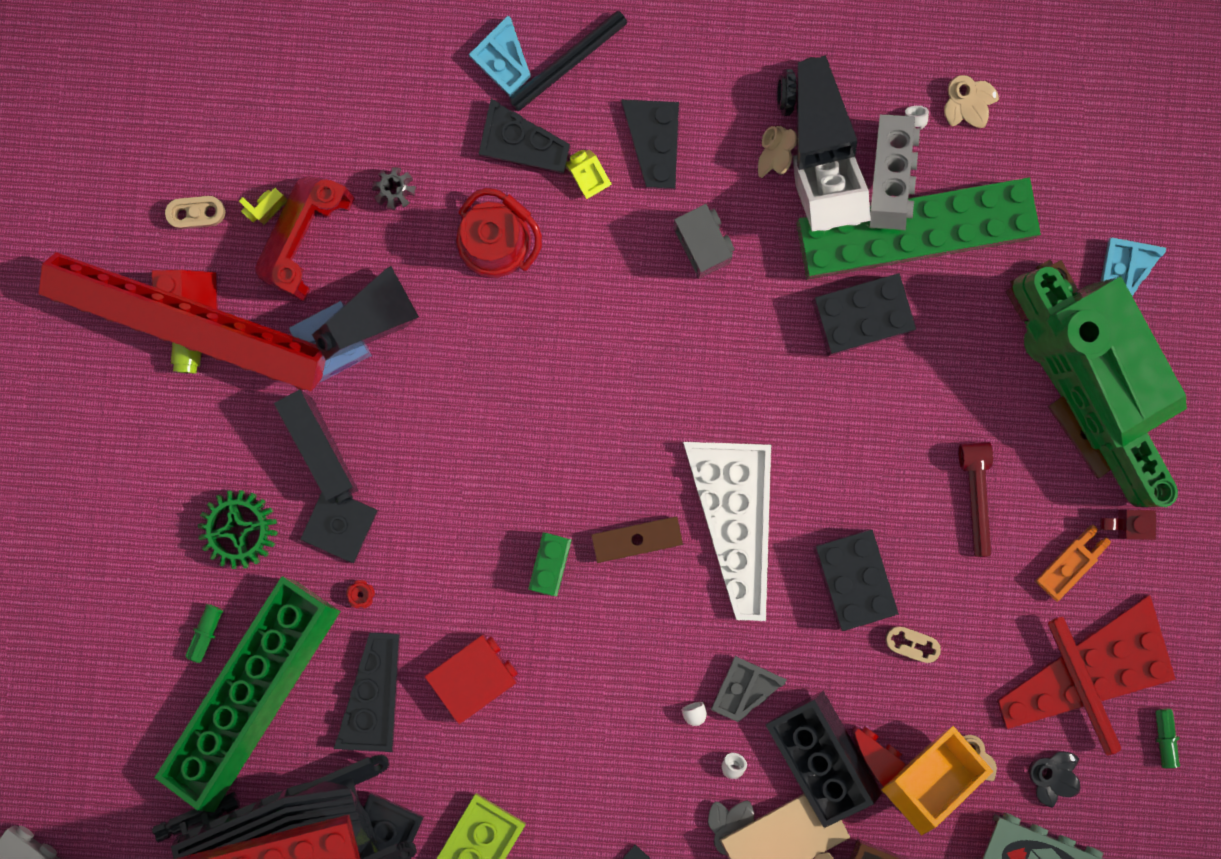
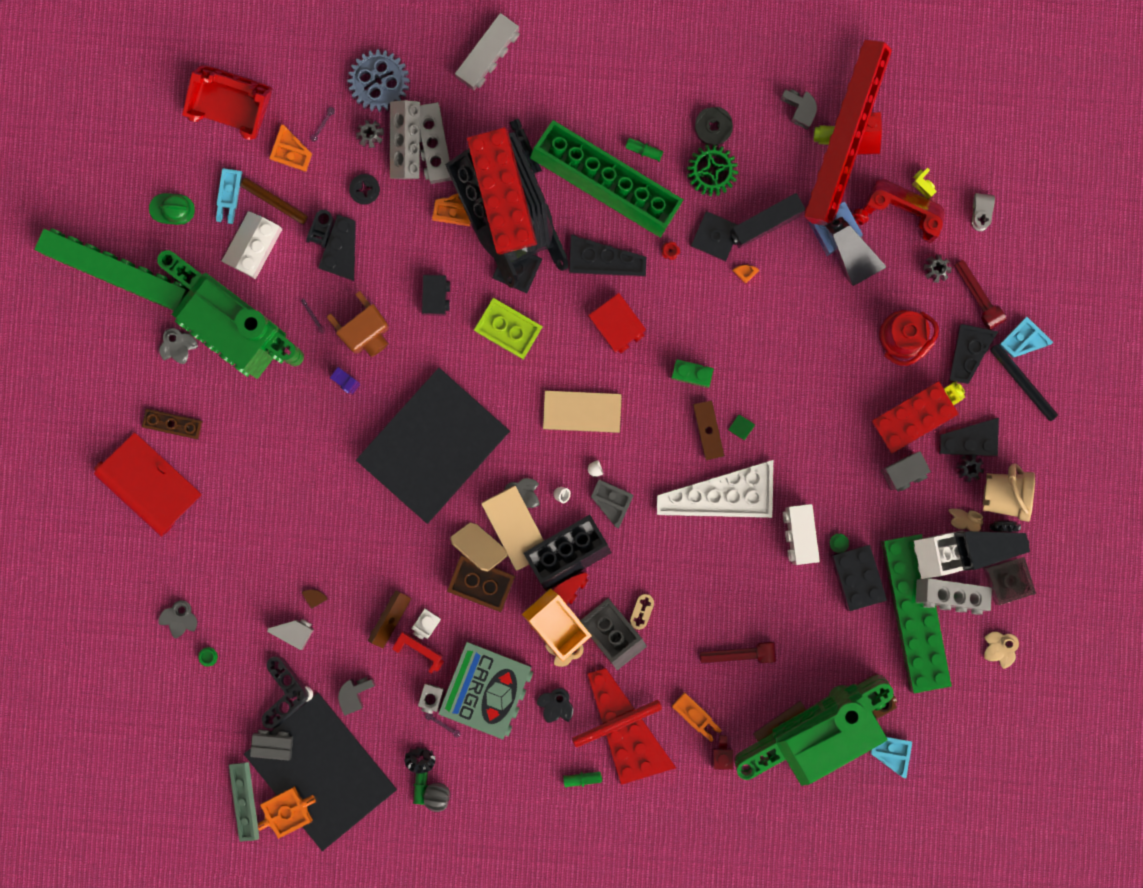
camera: 80 degrees right, 0 degrees up
(143, 385) = (805, 107): none -> dark grey brick
(152, 526) = (714, 115): none -> pearl dark grey plate
(196, 212) = (919, 139): tan plate -> none
(302, 118) = (982, 208): none -> light grey piece
(312, 303) = (860, 216): none -> red plate
(395, 479) = (745, 272): none -> orange tile
(466, 107) = (991, 315): none -> dark red axle
(606, 733) = (582, 411): none -> tan tile
(620, 225) = (915, 417): none -> red brick
(632, 489) = (741, 427): none -> green slope
(707, 147) = (974, 464): none -> black piece
(737, 83) = (1010, 493): none -> tan piece
(799, 401) = (801, 534): none -> white brick
(810, 343) = (839, 543): none -> green plate
(855, 580) = (684, 573): black brick -> none
(870, 86) = (1009, 580): none -> clear smoke brick
(920, 113) = (991, 615): white hinge -> none
(948, 690) = (613, 634): none -> dark grey slope

